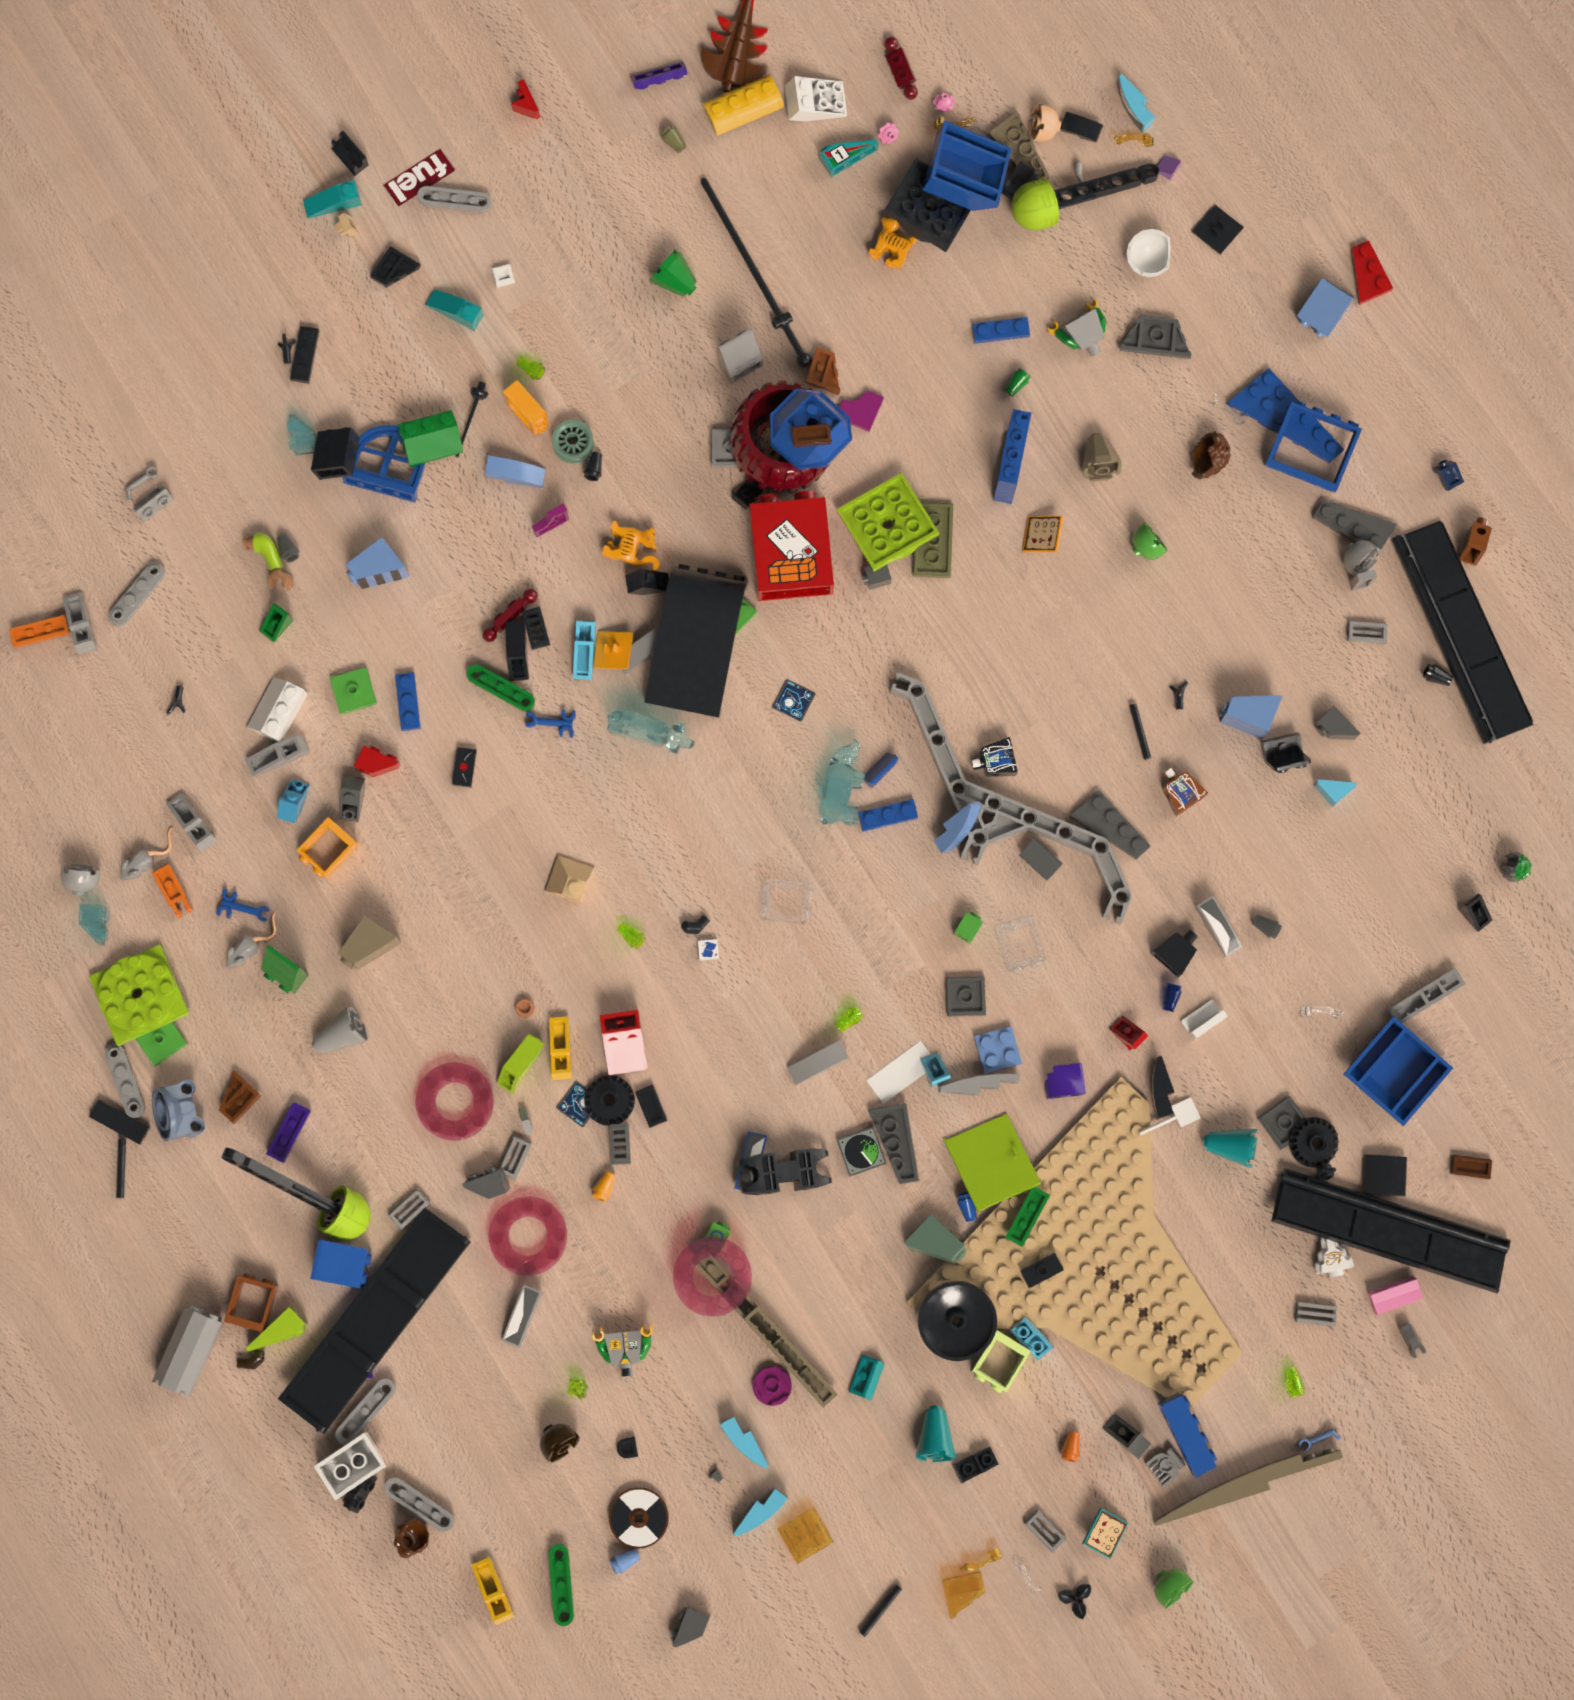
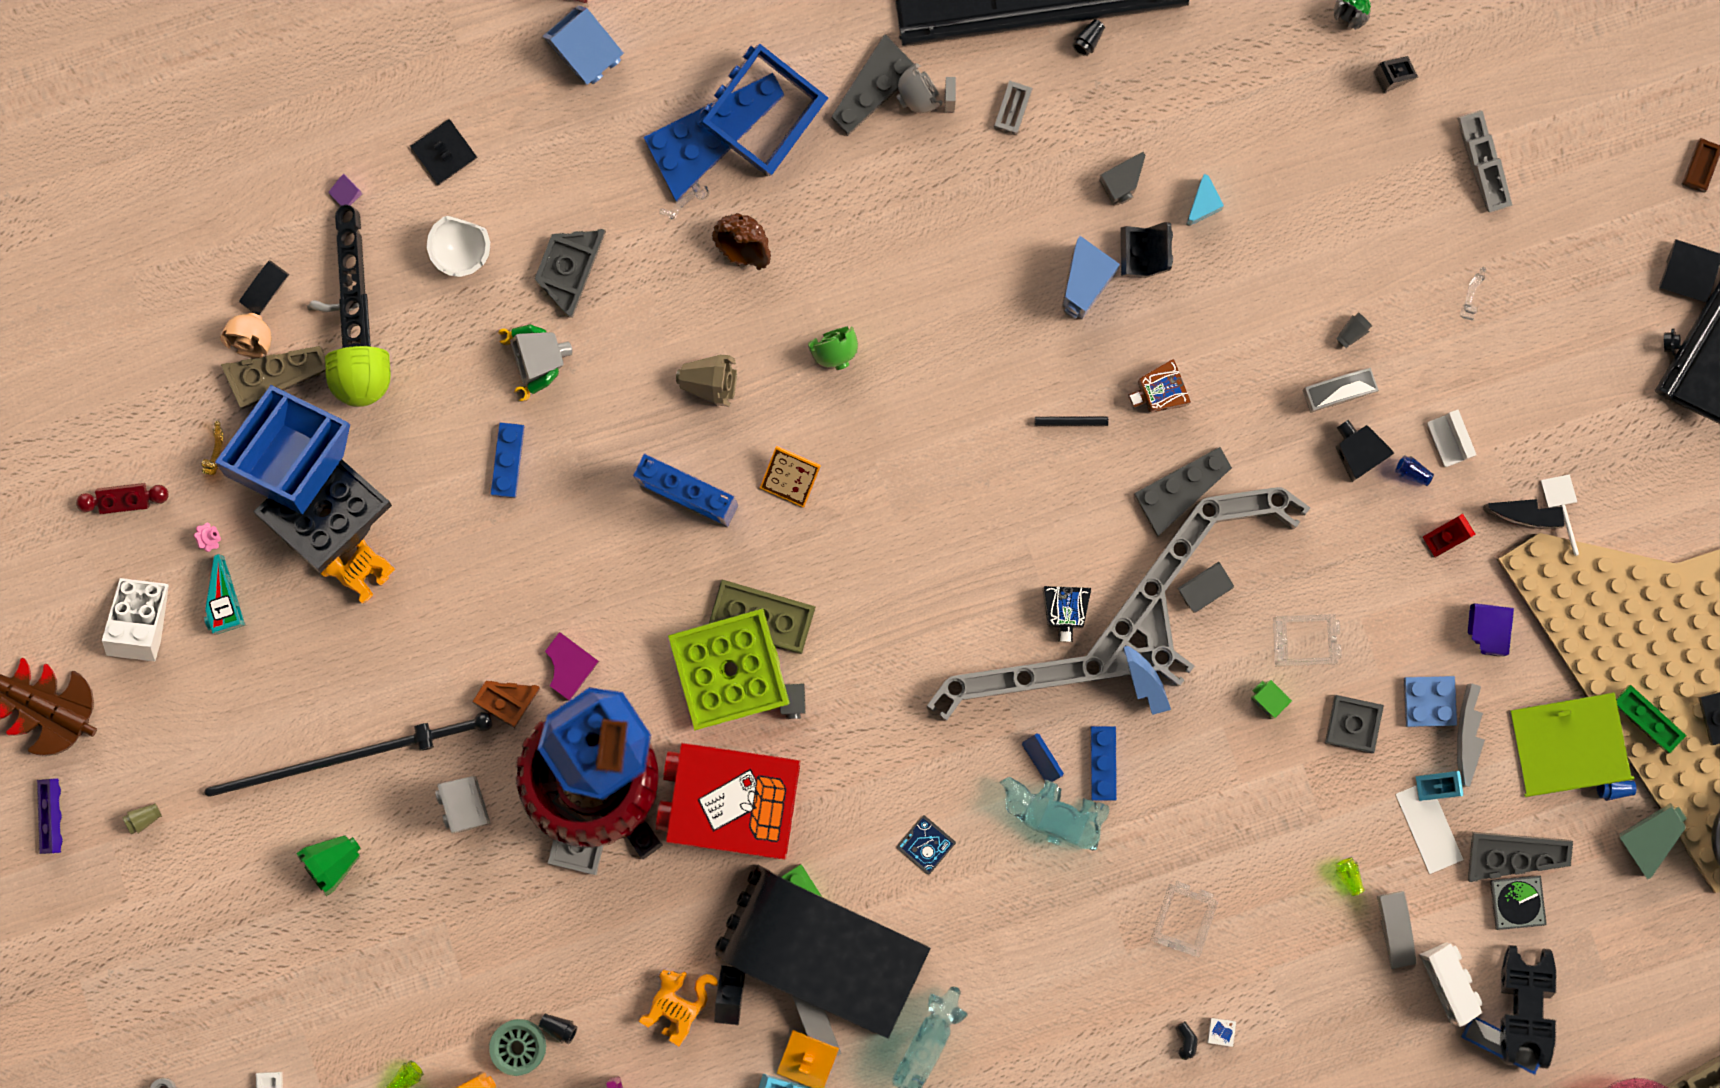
camera: 70 degrees left, 5 degrees up
(526, 104) = (44, 1000): red slope -> none
(743, 105) = (119, 716): yellow container -> none
(788, 1112) = (1452, 983): none -> white slope
(943, 102) = (183, 455): bright pink plant -> none
(1017, 382) = (582, 457): green cone -> none
(1022, 174) = (314, 383): black bracket -> none
(1134, 104) = (250, 213): medium azure slope -> none
(1147, 139) = (302, 208): clear yellow piece -> none
(1179, 694) = (1036, 360): black bar -> none
(1233, 1145) = (1616, 445): teal cone -> none
(1281, 1120) = (1598, 374): dark grey tile -> none
(1303, 1136) = (1620, 352): black gear -> none
(1397, 1070) = (1572, 222): blue slope -> none

